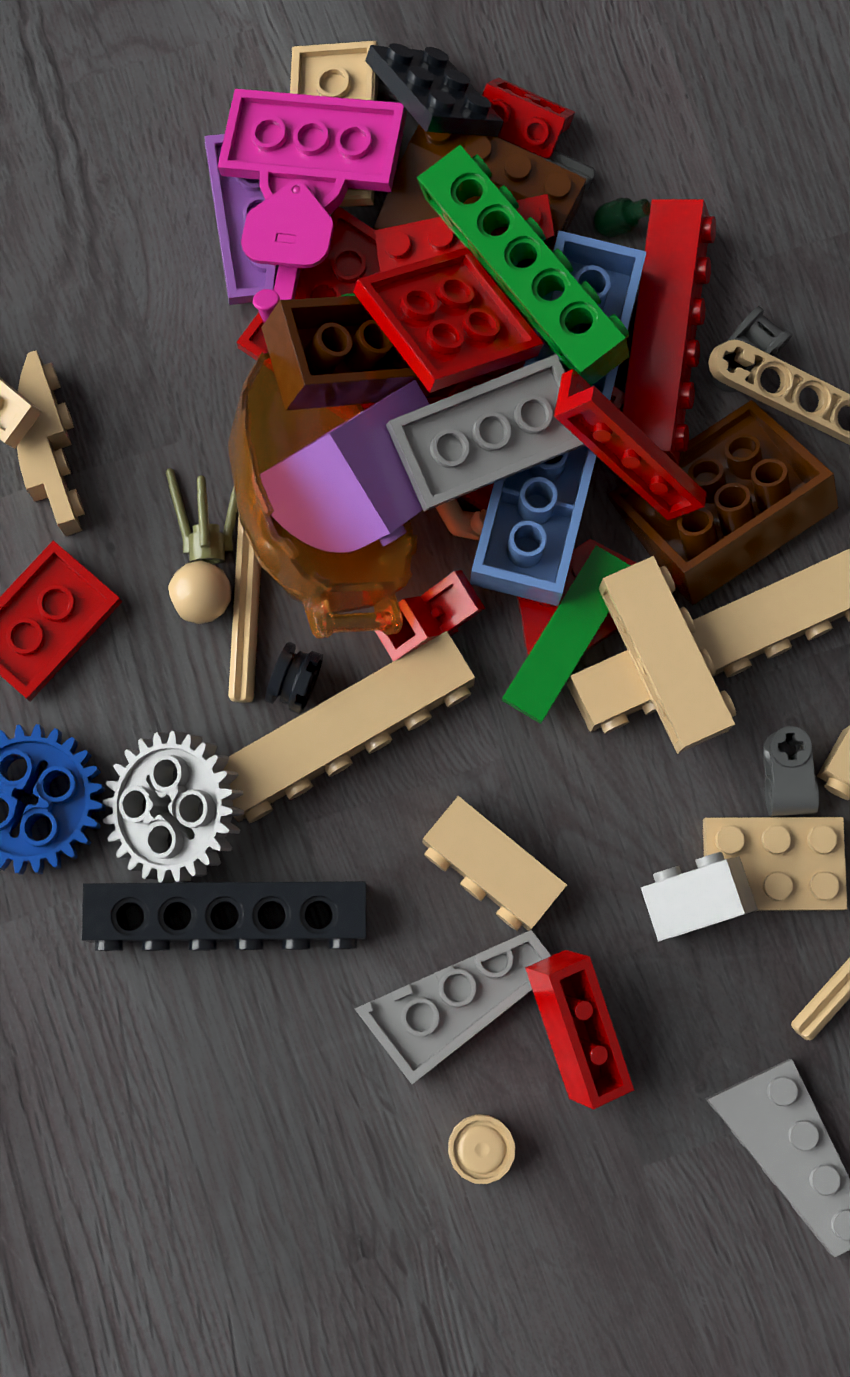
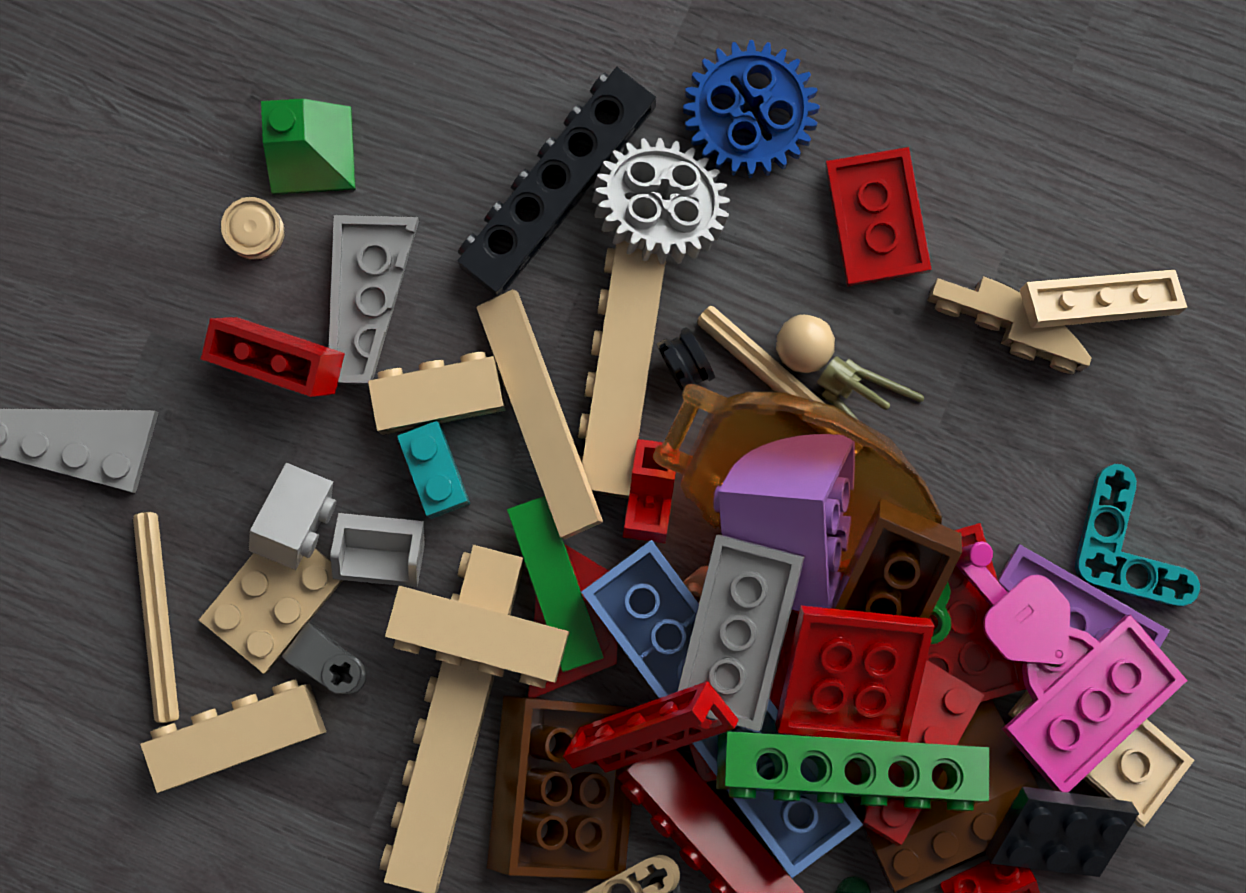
camera: 135 degrees right, 5 degrees up
(175, 232) = (1110, 547): none -> teal beam
(368, 1161) = (308, 146): none -> green slope
(438, 762) = (539, 414): none -> tan tile
(559, 812) = (433, 470): none -> teal brick
(664, 803) = (377, 550): none -> light grey panel

